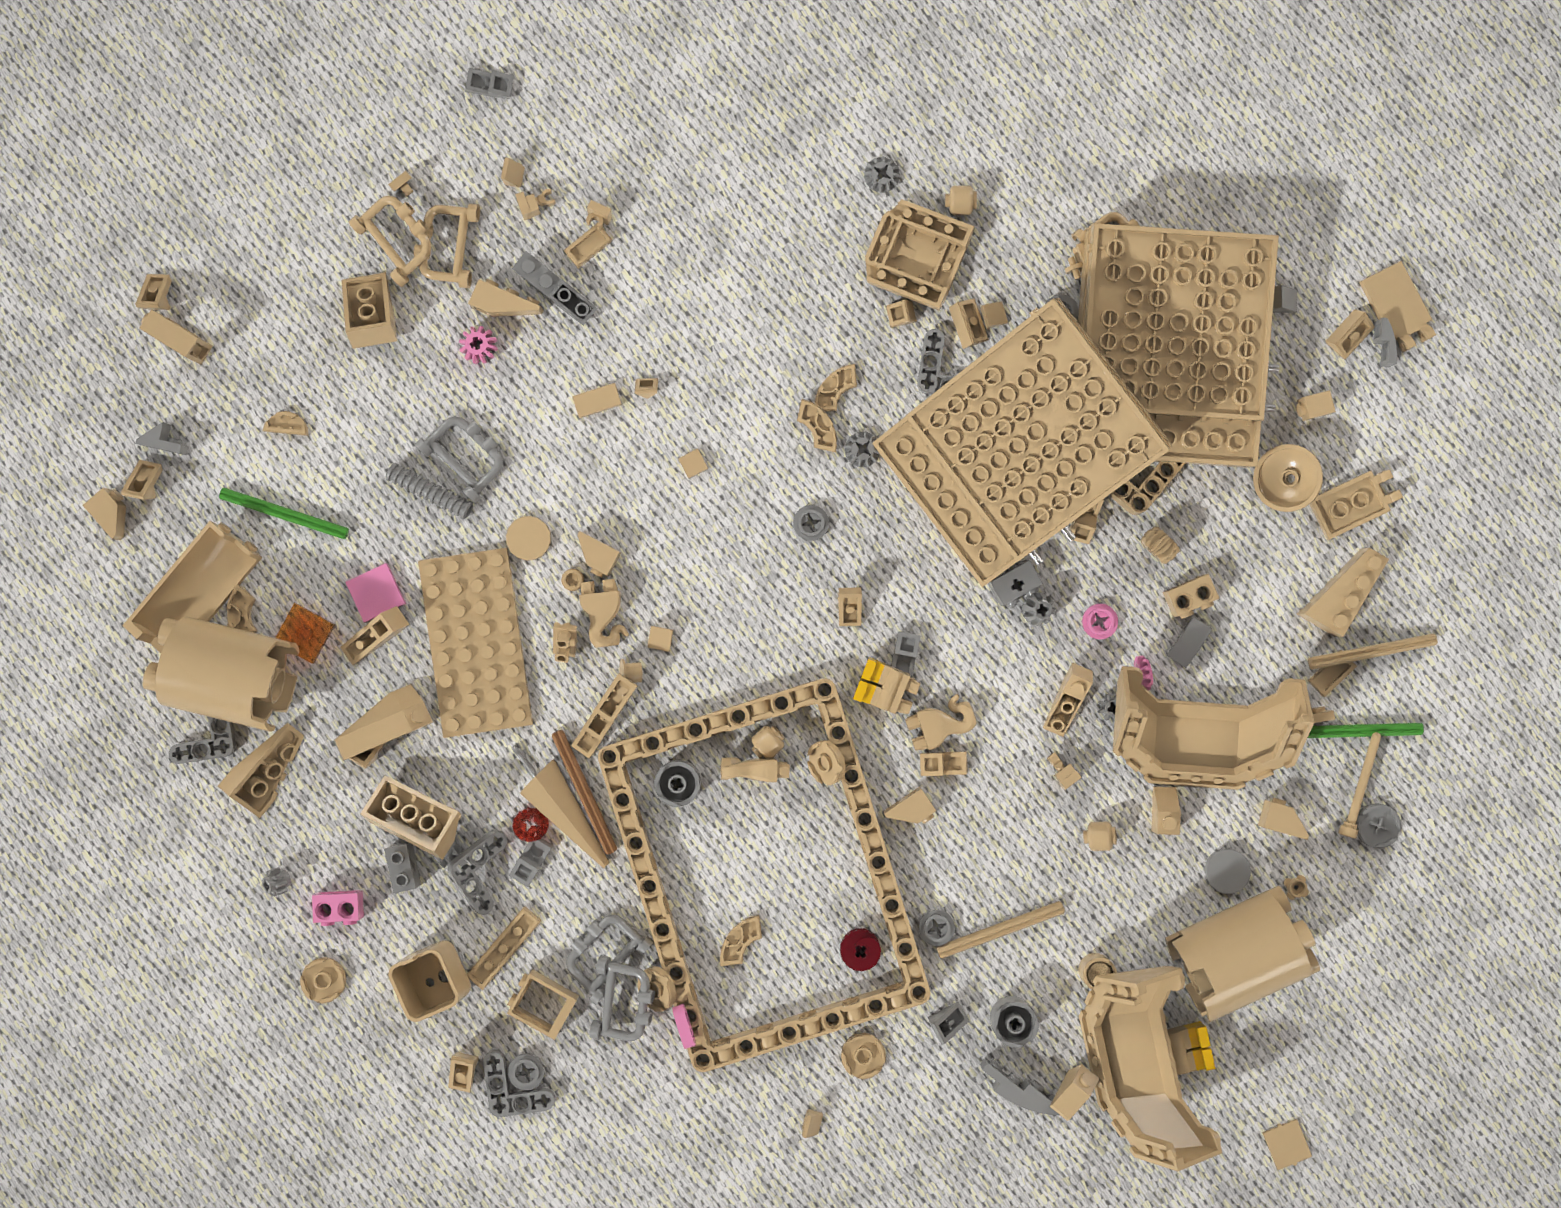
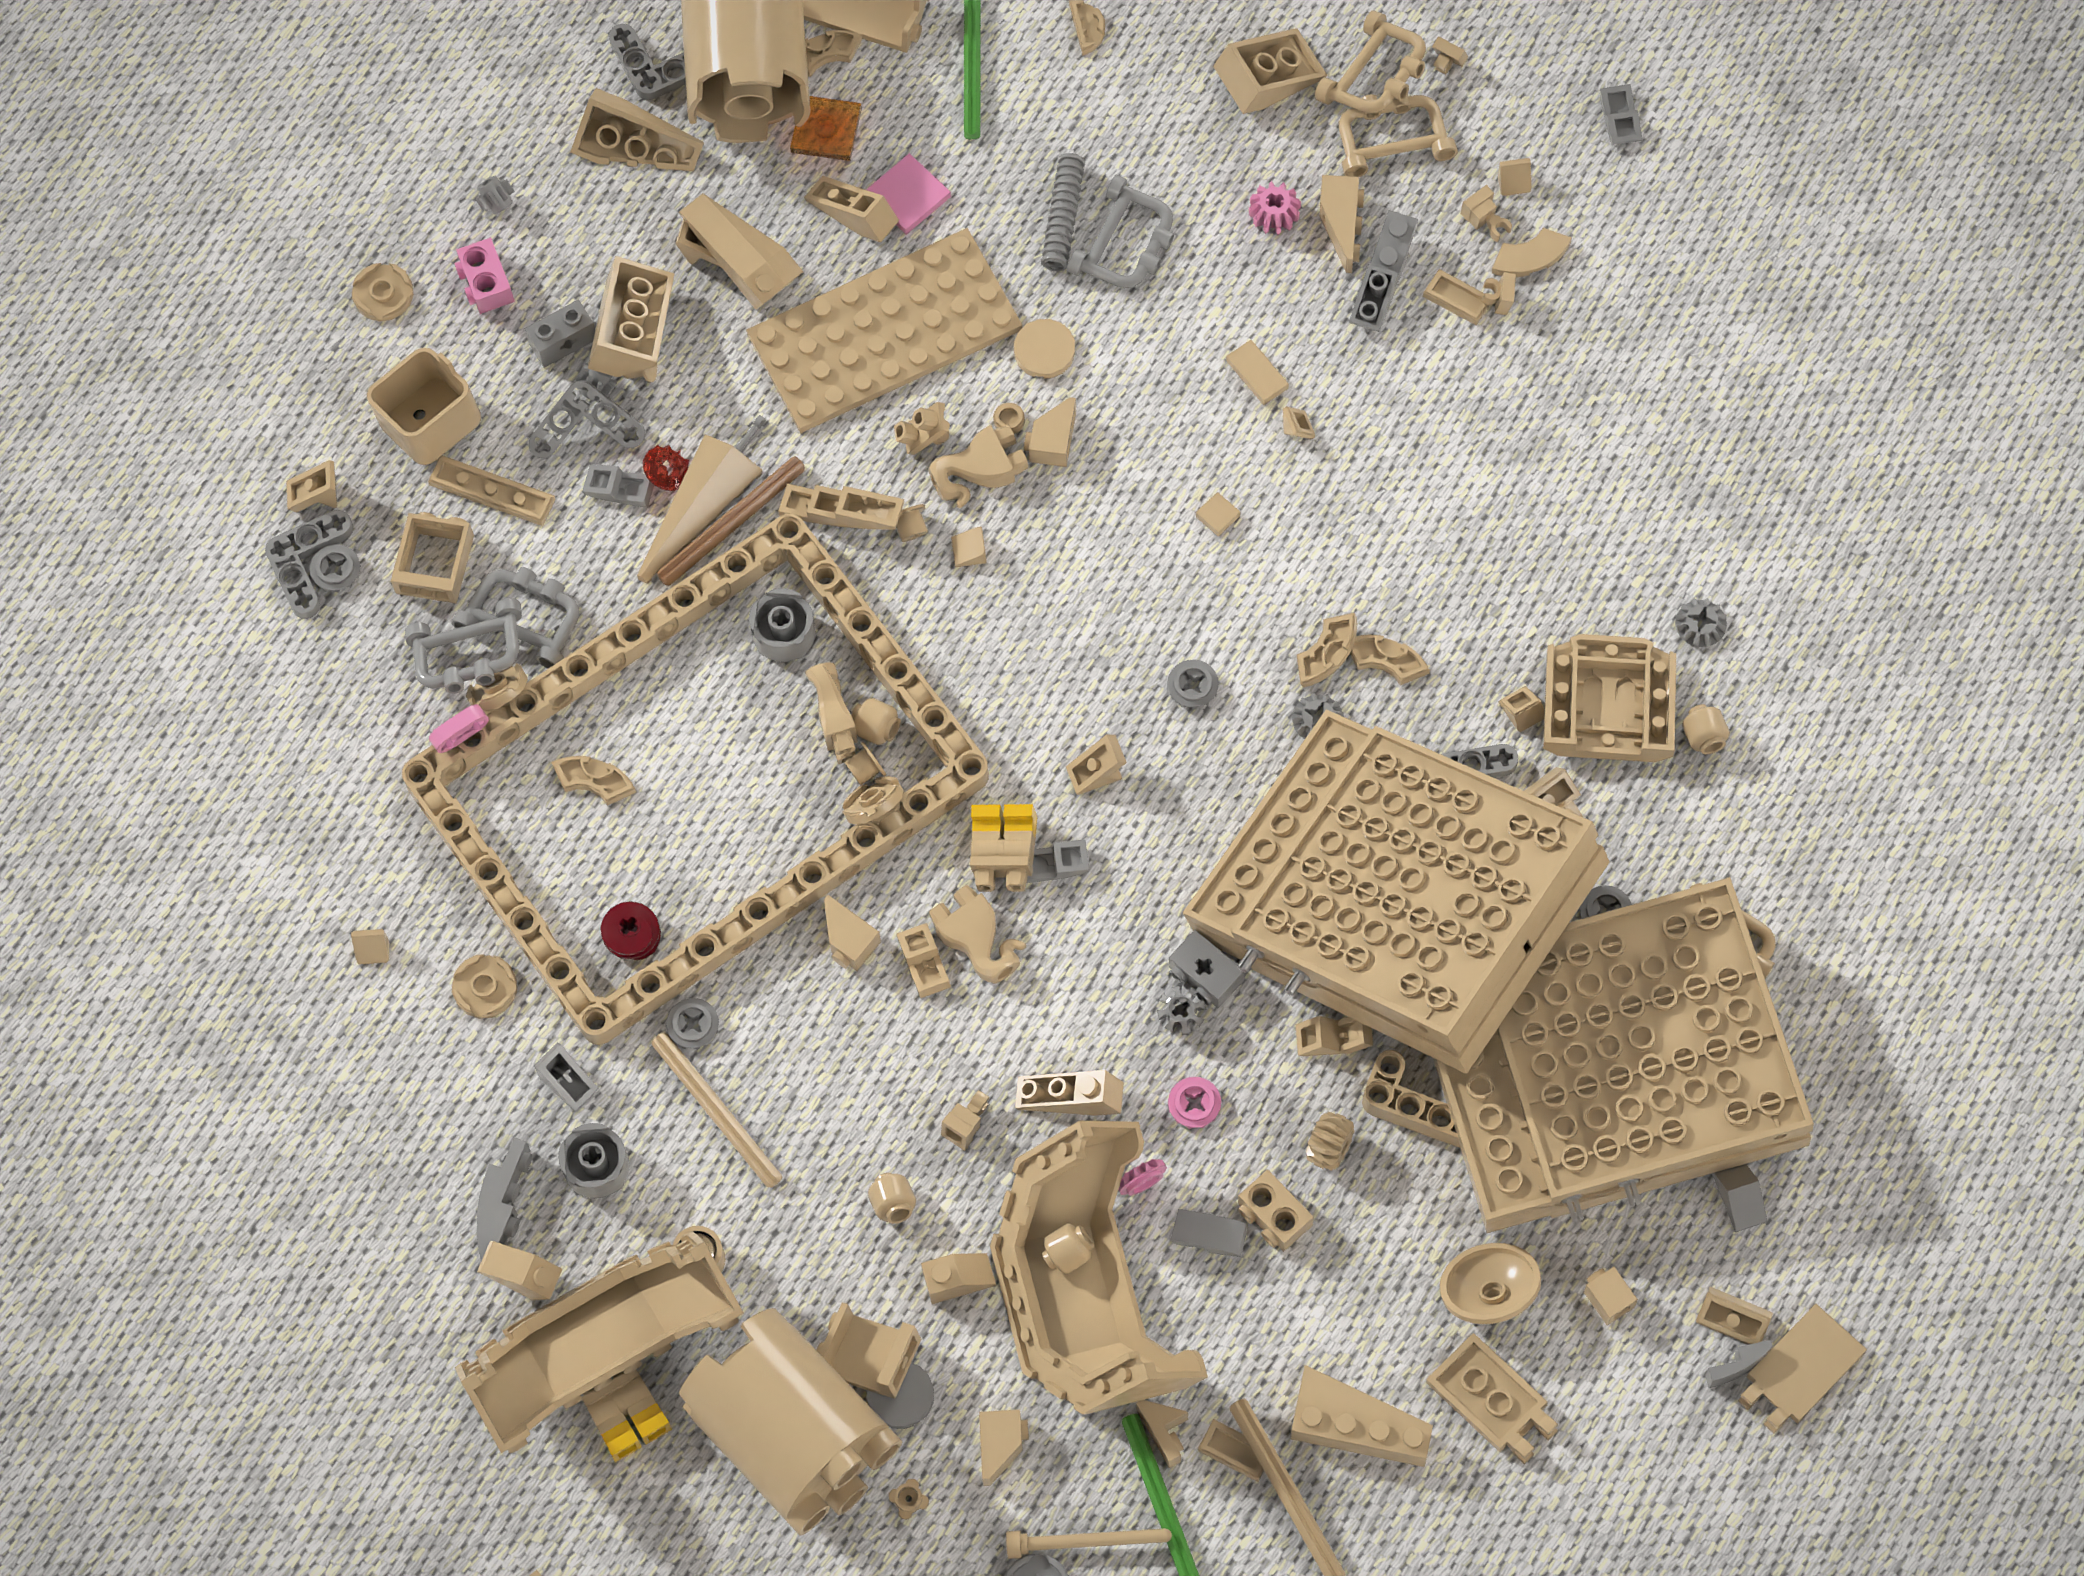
camera: 80 degrees right, 20 degrees down
(575, 184) = (1533, 255): none -> tan tile
(796, 759) = (864, 765): none -> tan piece
(1175, 736) = (1068, 1248): none -> tan head
(1197, 884) = (869, 1352): none -> tan panel

